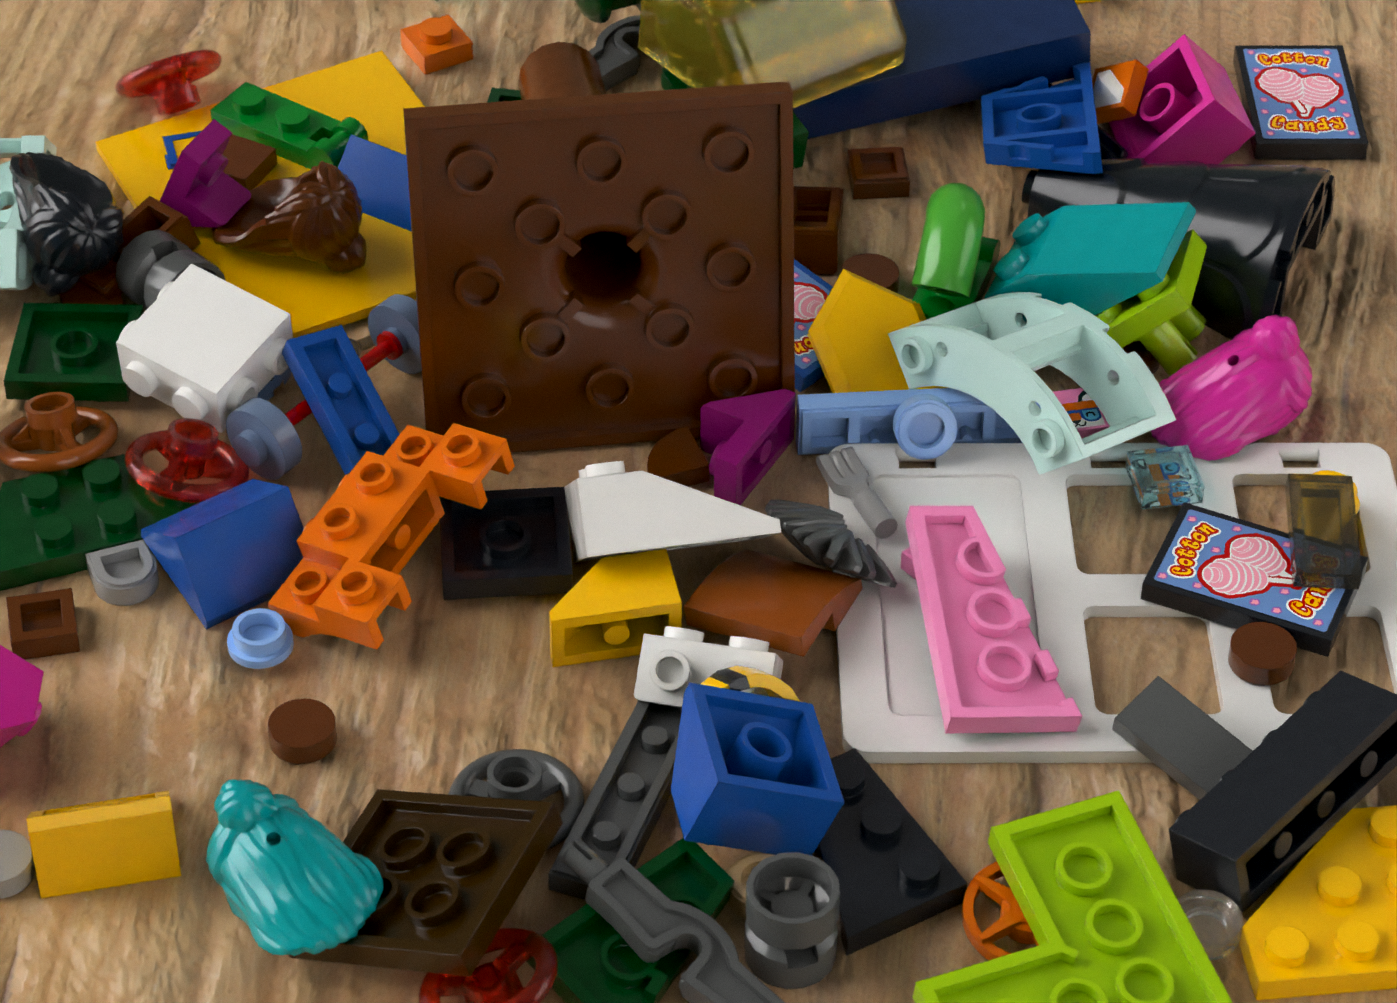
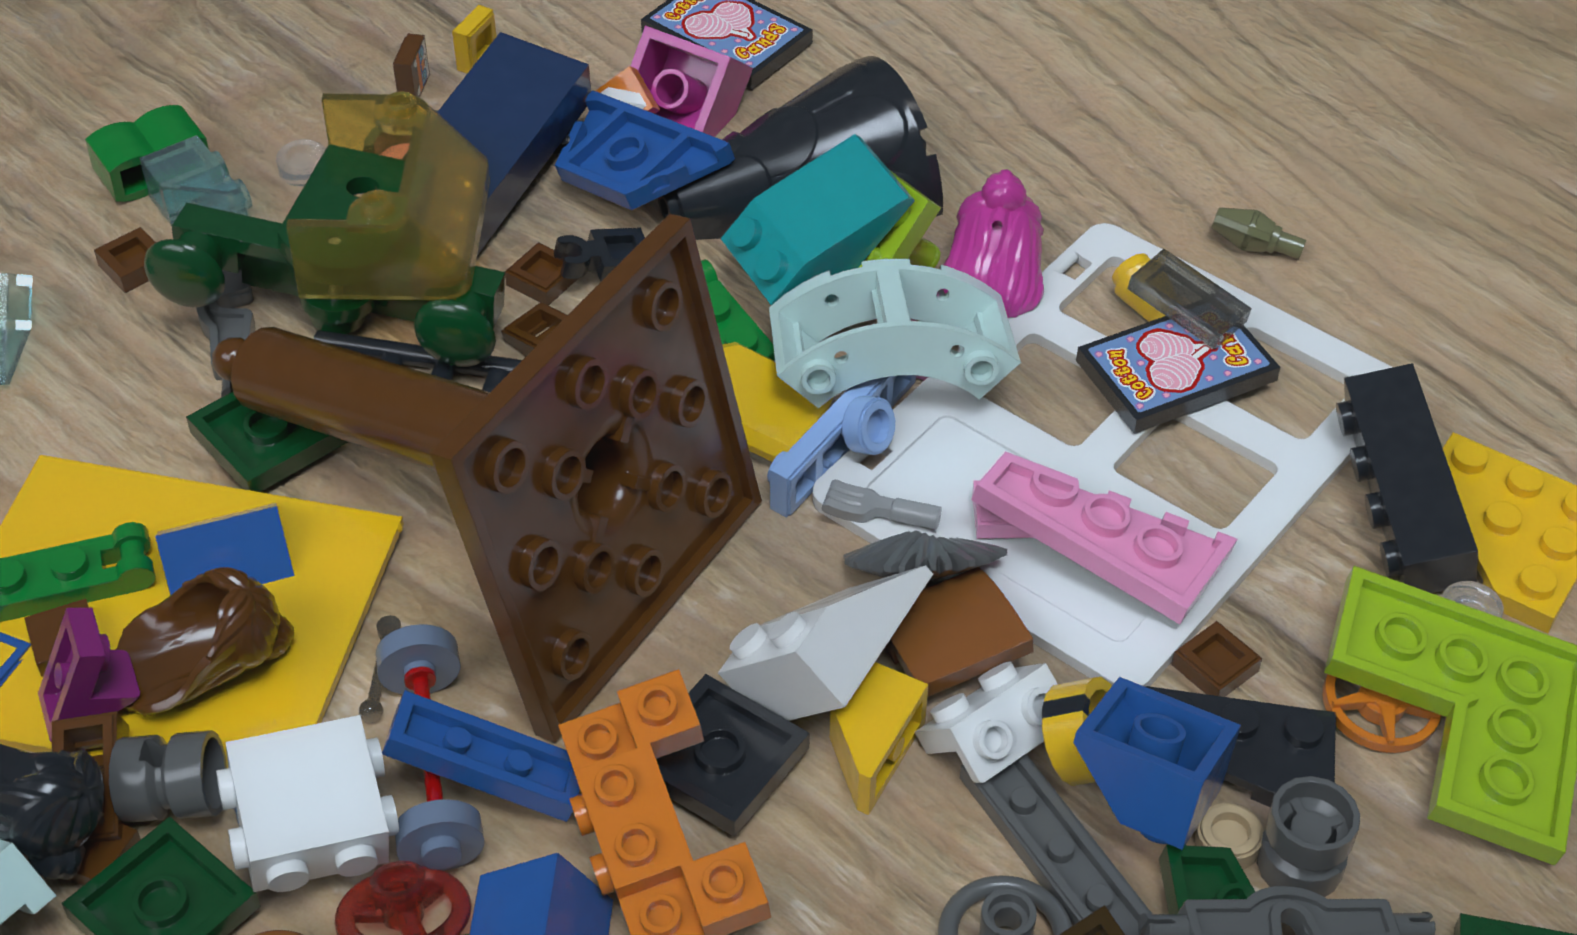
camera: 50 degrees left, 5 degrees up
(436, 44) = (70, 418): orange plate -> none
(679, 459) = (731, 591): reddish brown tile -> none
(746, 439) = (765, 530): magenta slope -> none
(919, 178) = (600, 253): none -> black plate
(944, 786) = (1216, 661): none -> reddish brown tile
(950, 241) = (729, 284): bright green cylinder -> none
(1164, 477) = (1038, 339): clear light blue tile -> none
(1179, 737) = (1304, 504): dark grey tile -> none
(1262, 653) = (1252, 408): reddish brown tile -> none

